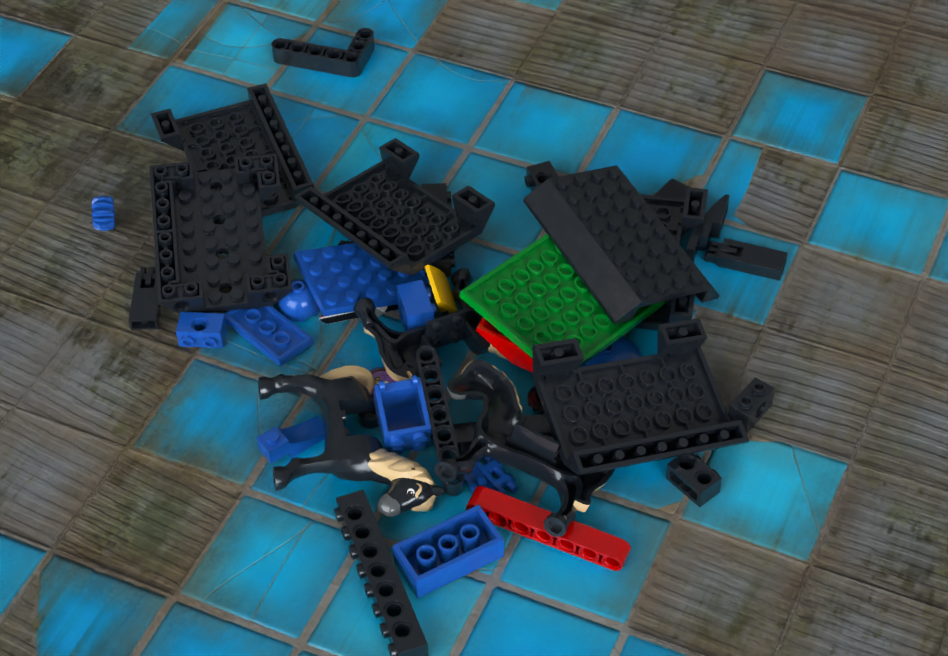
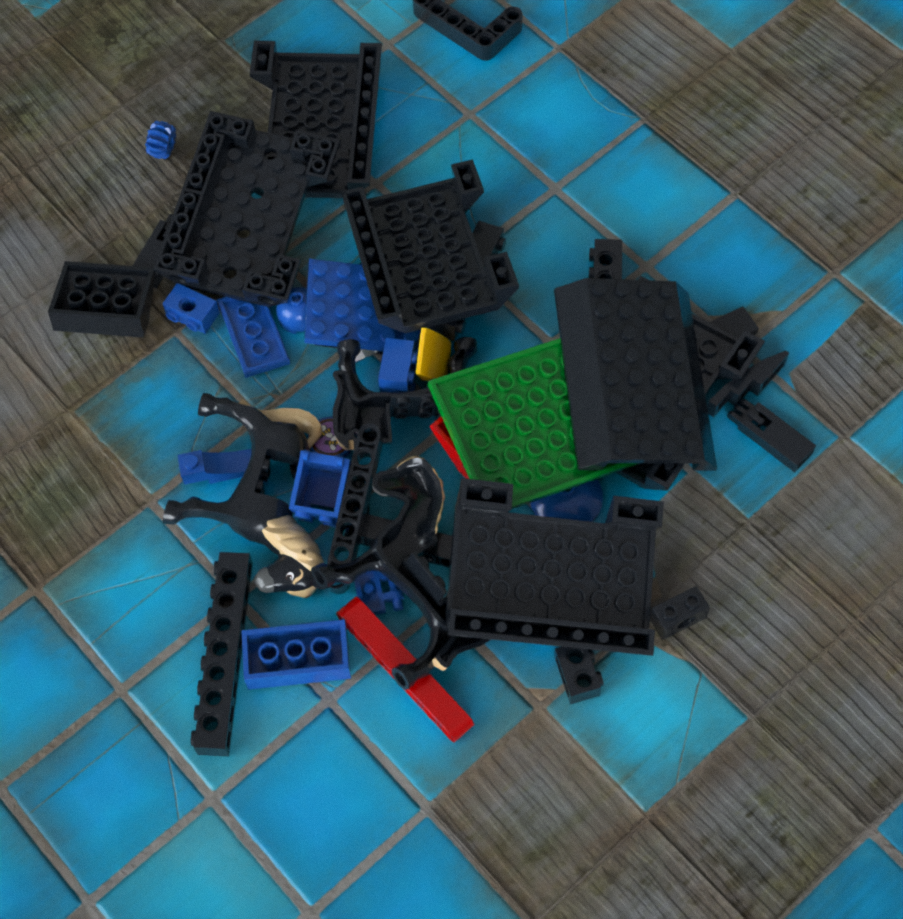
camera: 25 degrees right, 15 degrees up
(117, 348) = (102, 299): none -> black slope

